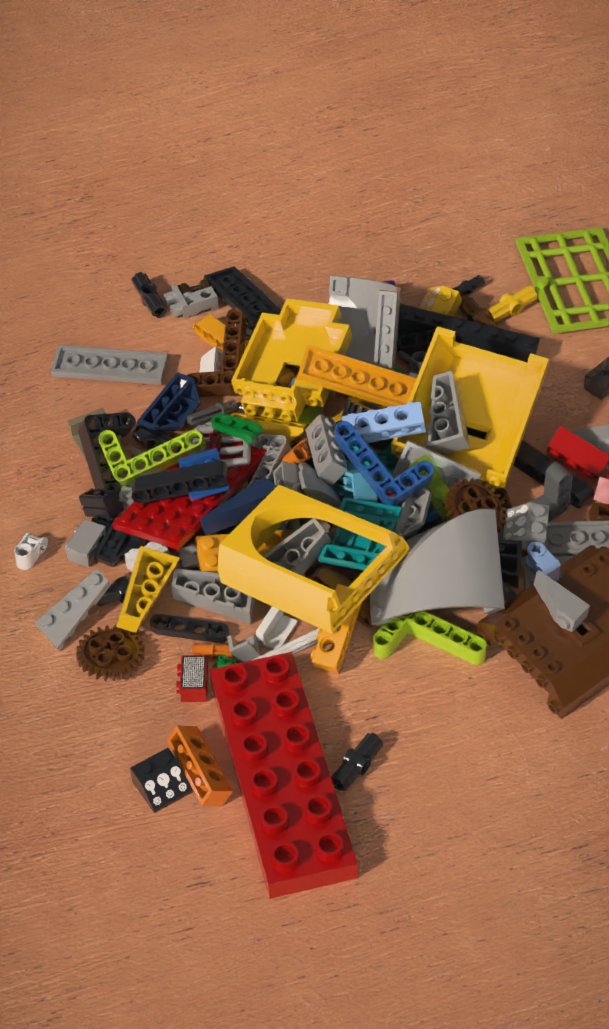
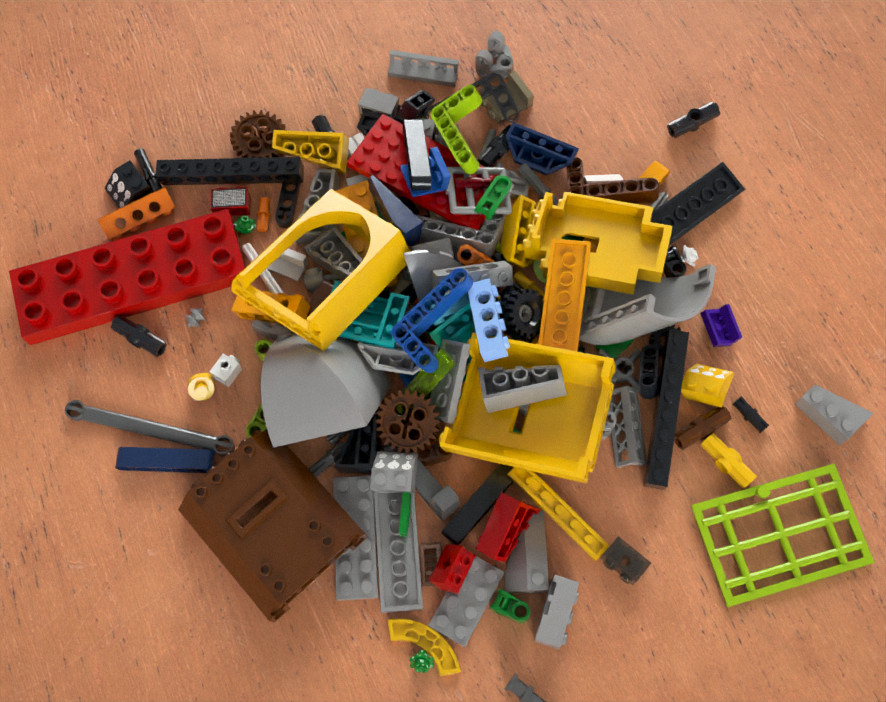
camera: 85 degrees right, 20 degrees up
(29, 550) = (372, 66): white piece -> none
(43, 503) = (423, 70): none -> light grey fence
(48, 434) = (496, 50): none -> light grey piece
(66, 614) = (302, 102): light grey wing -> none
(109, 364) = (597, 99): light grey plate -> none
(124, 768) = (147, 169): none -> black pin
(156, 676) = (230, 171): none -> black brick
(191, 299) = (689, 154): light grey hips -> none
(245, 649) = (260, 235): light grey panel -> none
(337, 708) = (195, 316): none -> light grey wheel
(360, 639) = (265, 330): none -> light grey slope
(403, 678) = (226, 369): none -> white brick
(423, 698) = (201, 386): none -> yellow piece
(466, 752) = (149, 428): none -> dark grey piece
(469, 233) = (833, 413): none -> light grey wedge
(505, 731) = (164, 460): none -> dark blue beam
(540, 558) = (350, 491): light blue piece -> none
(561, 417) = (559, 511): none -> yellow tile
(563, 605) = (260, 499): light grey slope -> none
(567, 523) = (405, 514): none -> green tile

